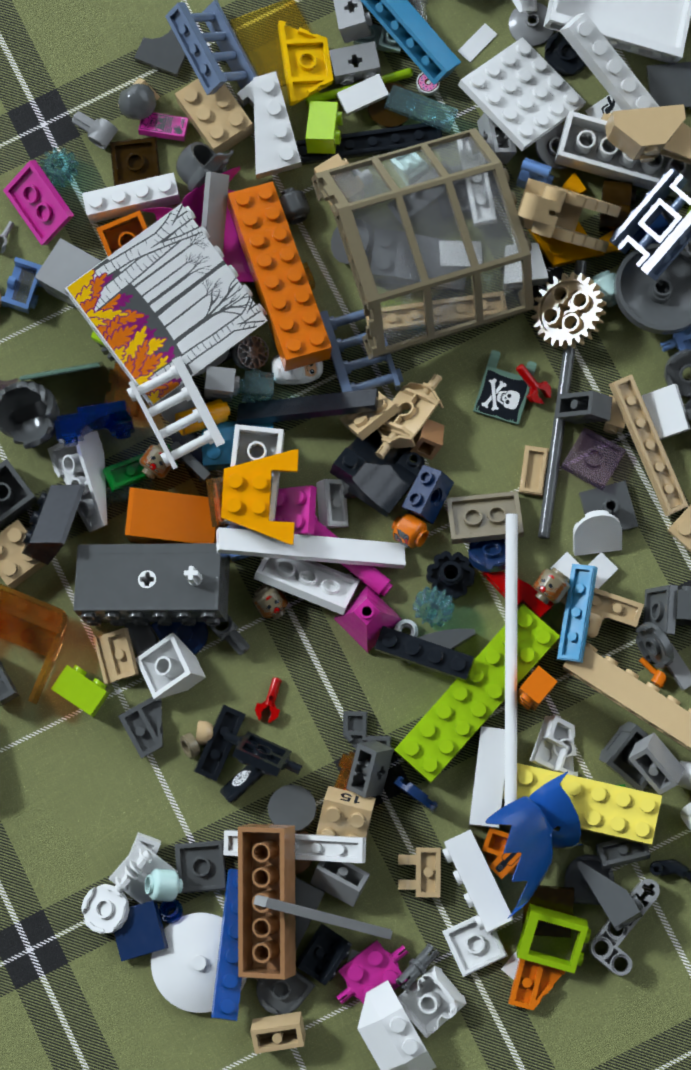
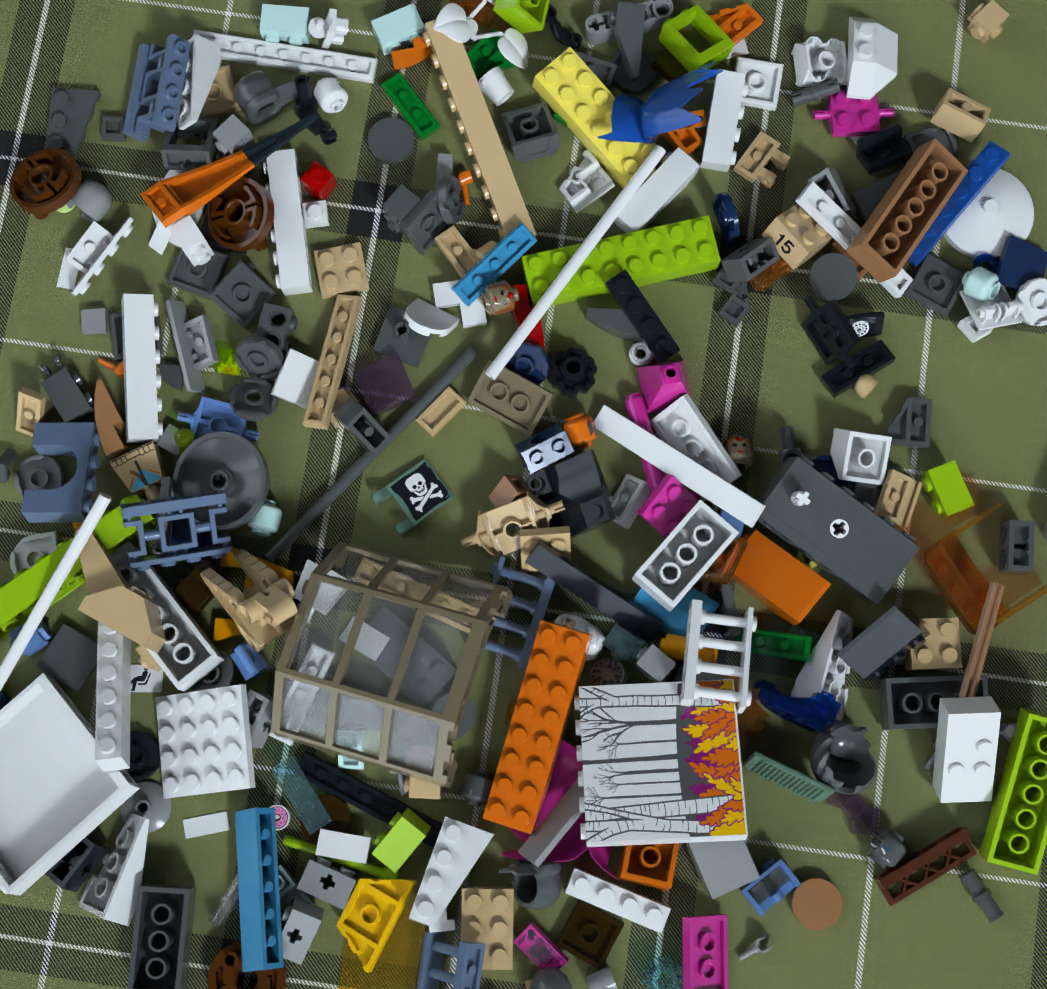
camera: 155 degrees left, 0 degrees up
(153, 462) = (762, 637): dark tan head -> none
(190, 745) = (884, 382): dark tan tile -> none
(248, 495) = (703, 538): light orange wing -> none
(270, 701) = (792, 374): red bar -> none
(322, 916) = (873, 164): light grey tile -> none
(433, 606) = (605, 353): clear light blue gear -> none
(534, 385) = (380, 474): red bar -> none
(535, 689) = (572, 223): orange brick -> none
(586, 315) = (302, 499): tan gear -> none
(656, 763) = (520, 104): light grey brick -> none

